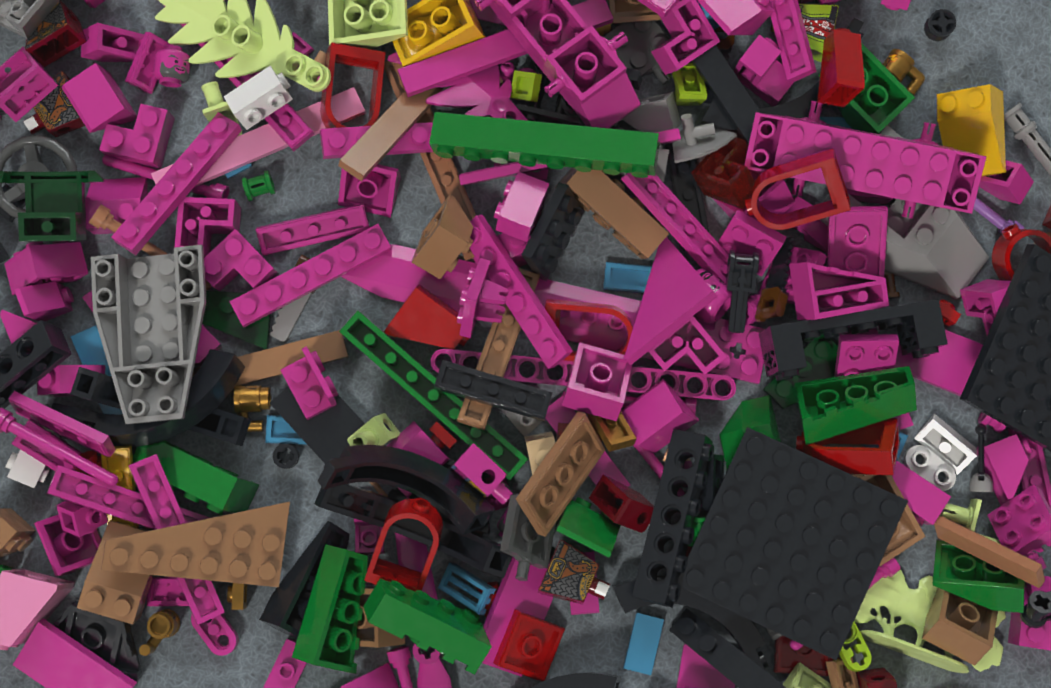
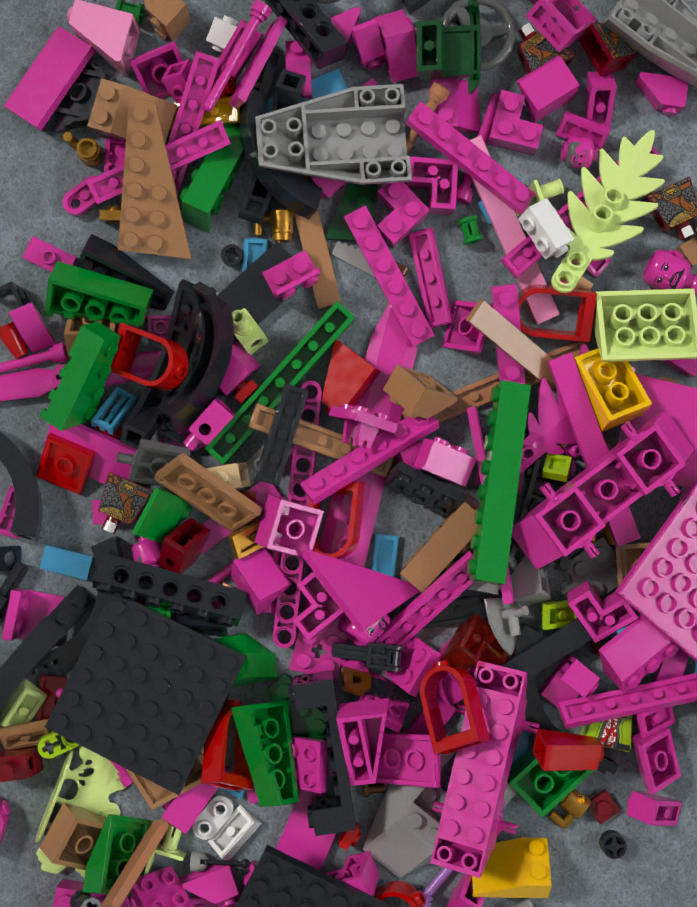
camera: 90 degrees right, 5 degrees up
(629, 546) = (147, 552): none -> dark pink head
(899, 36) = (603, 806): none -> dark red plate

